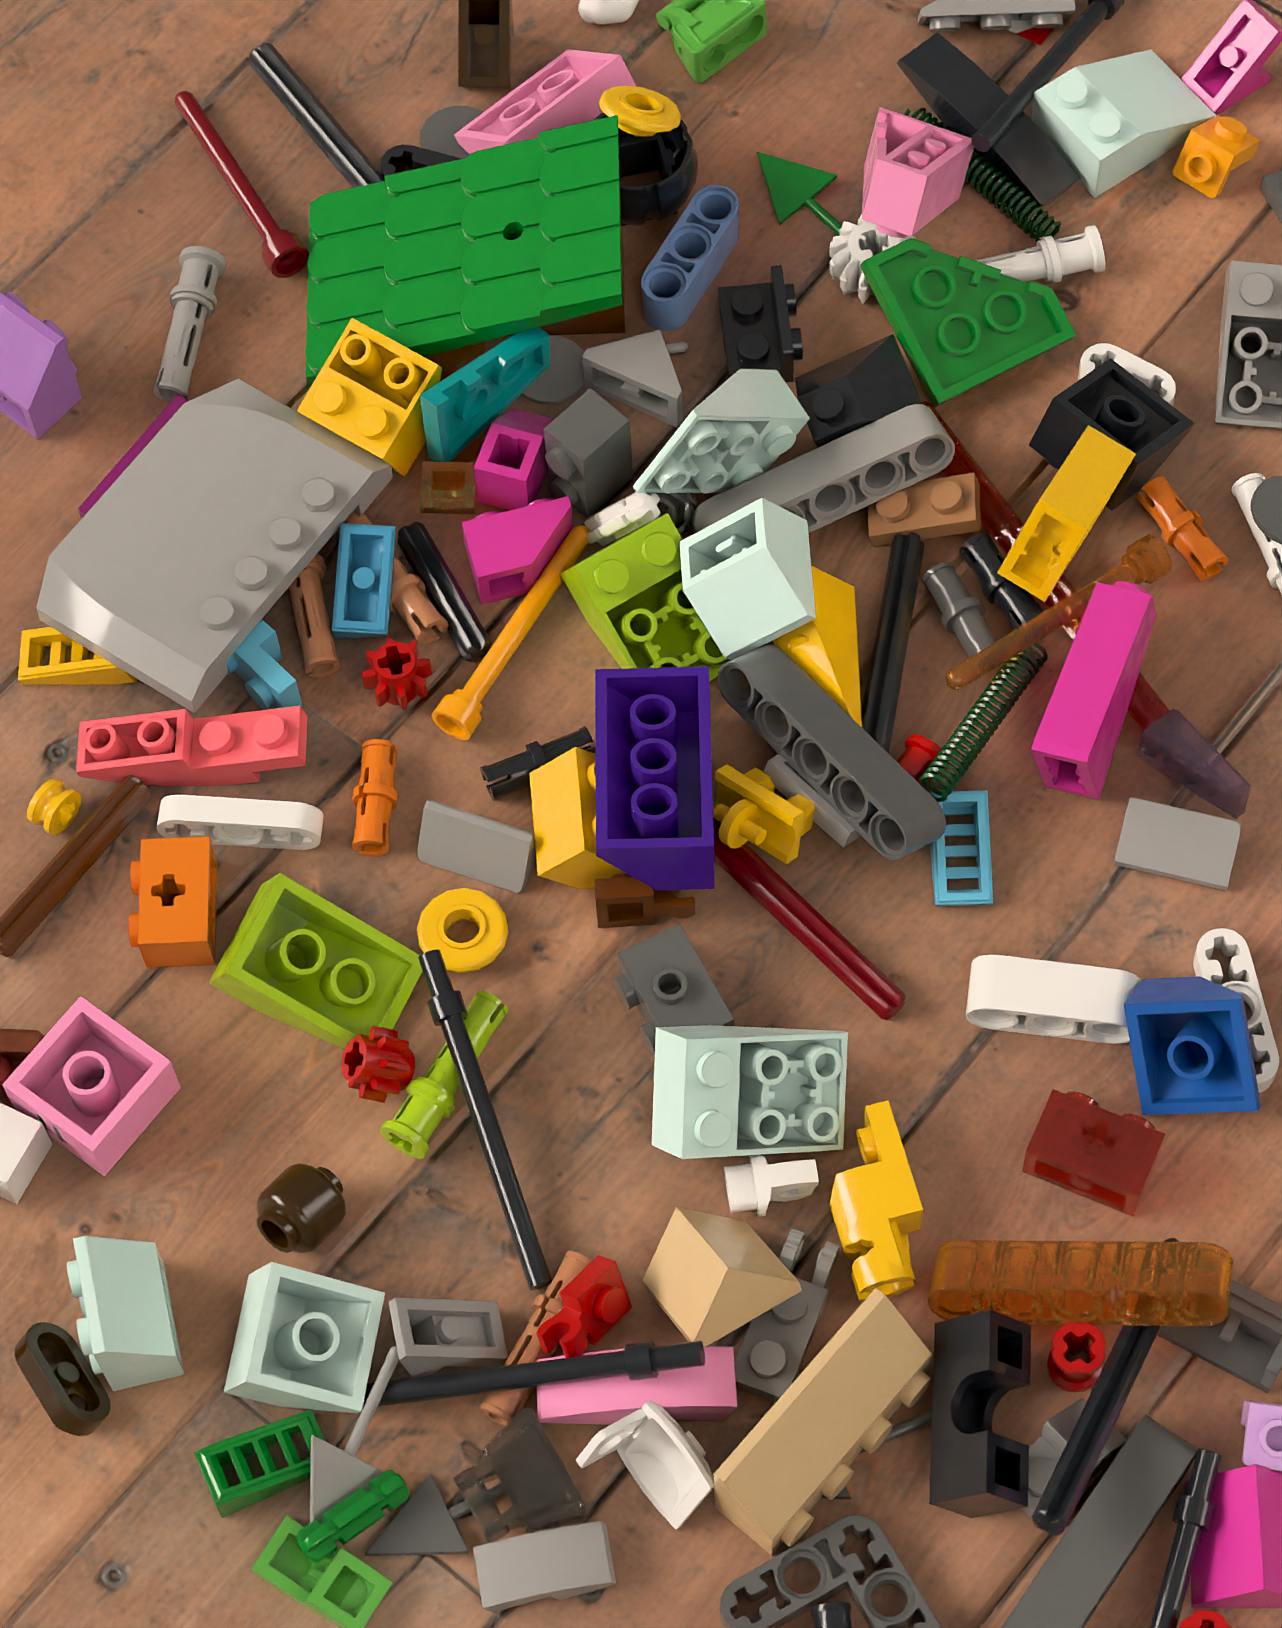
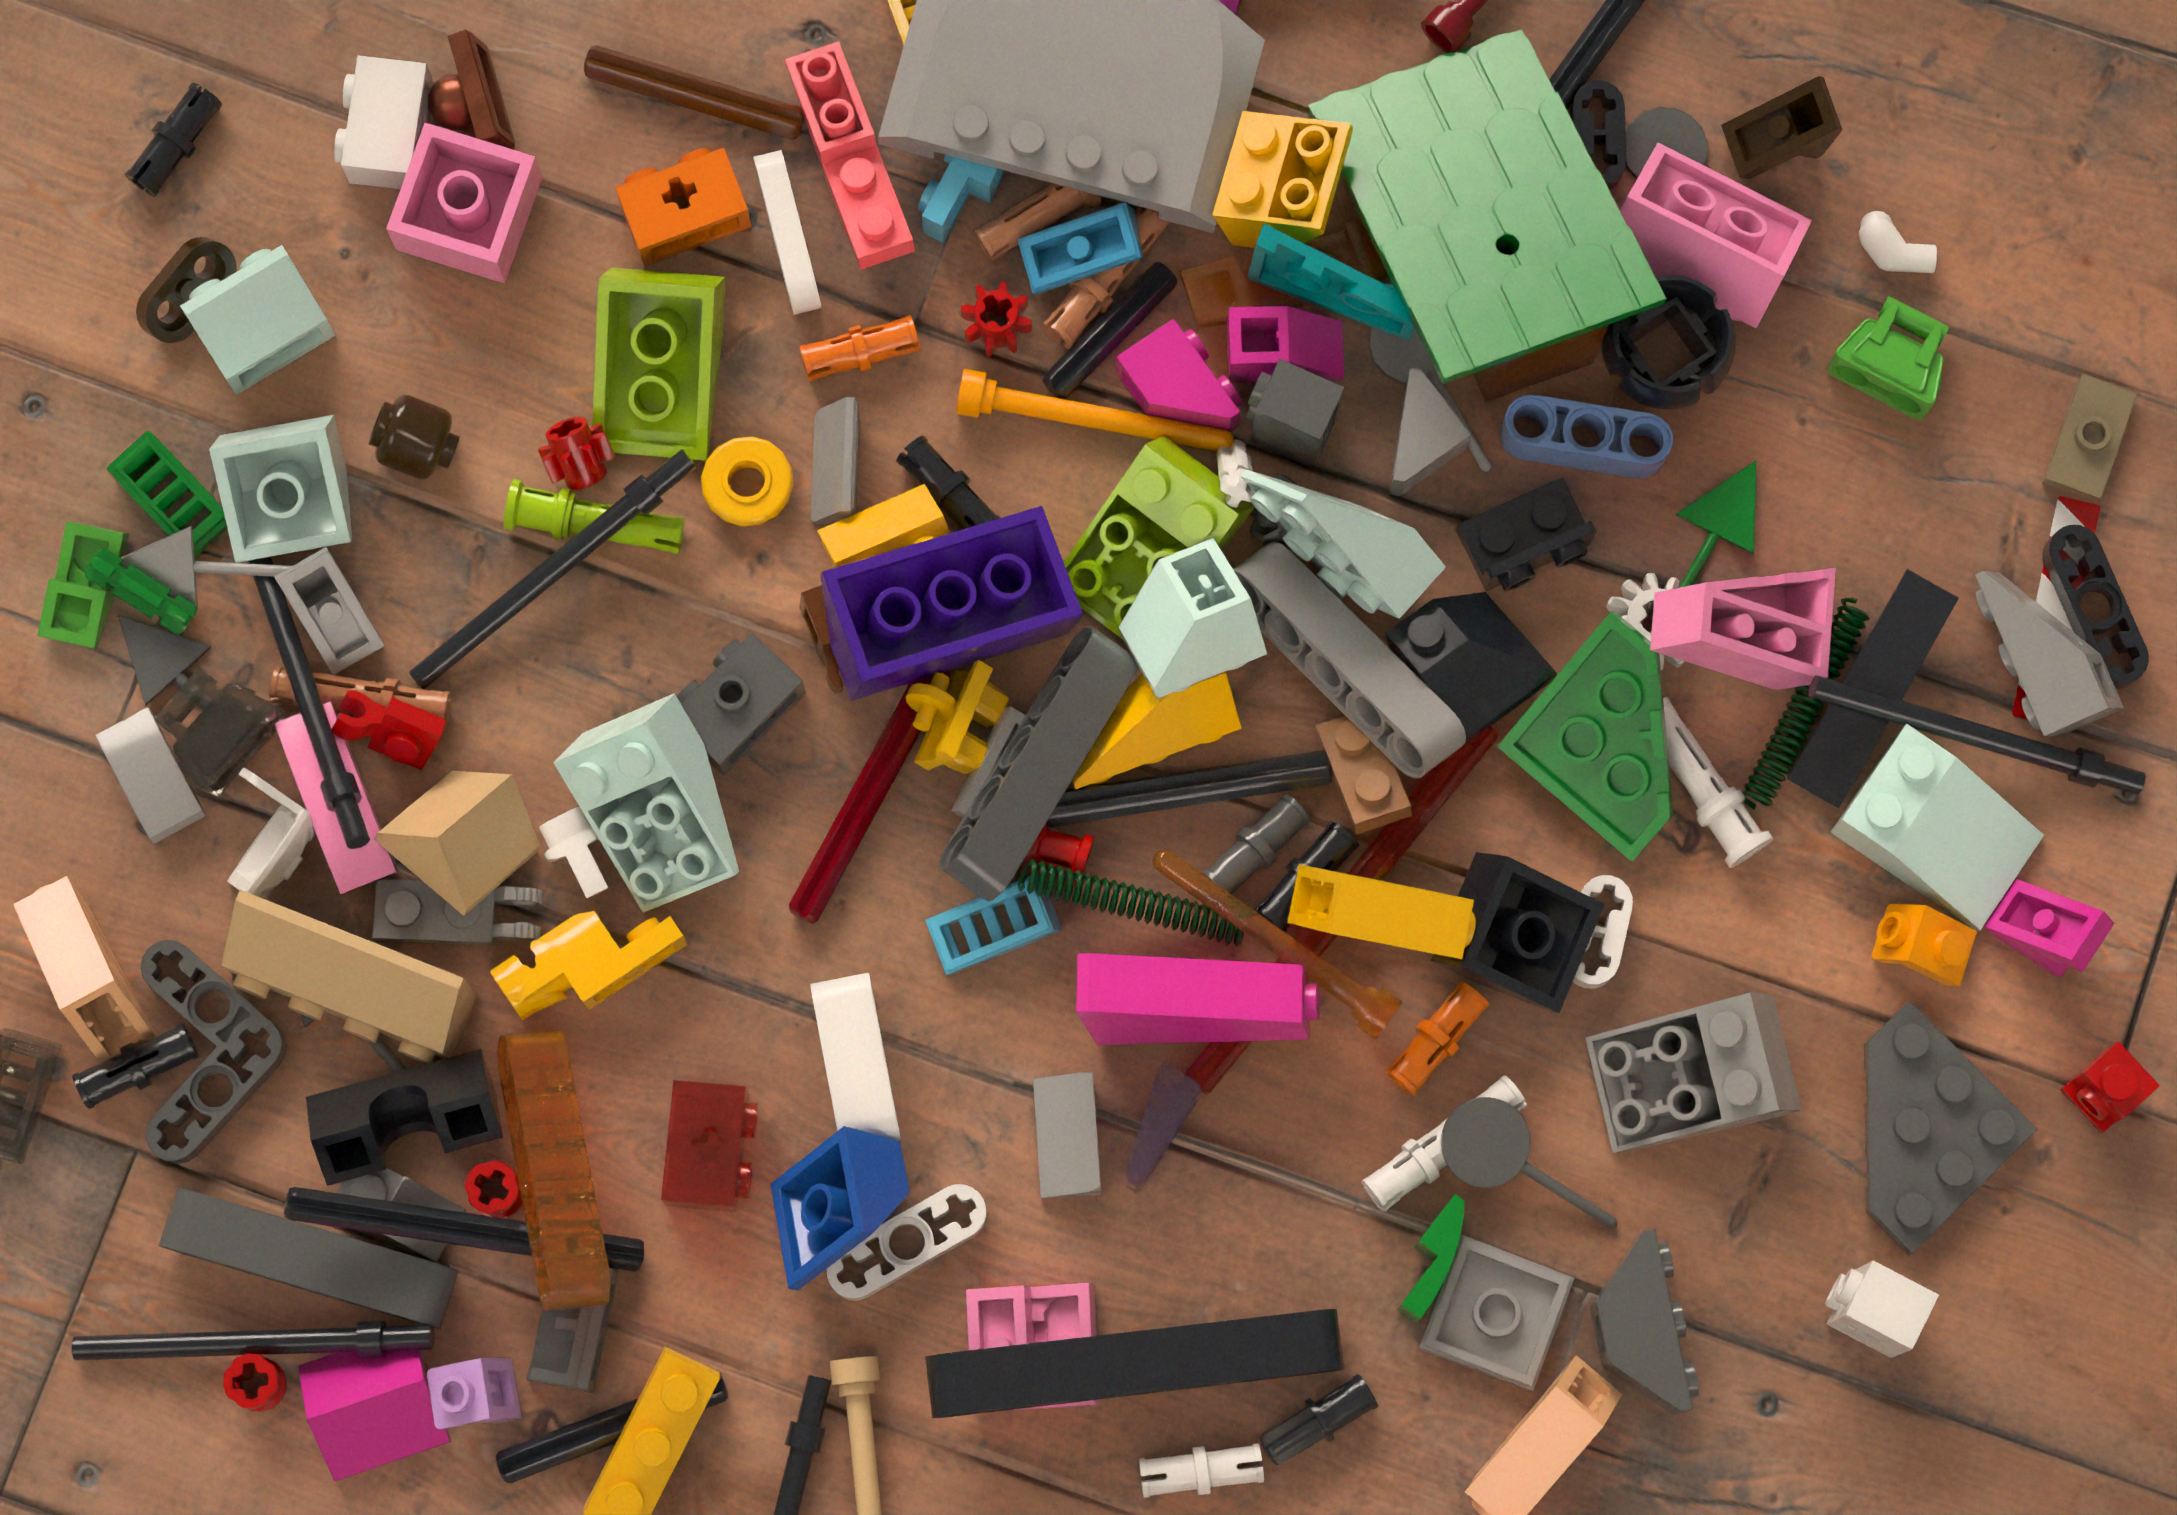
camera: 65 degrees right, 15 degrees up
(54, 806) = (746, 54): yellow bush -> none
(640, 110) = (1720, 317): yellow piece -> none

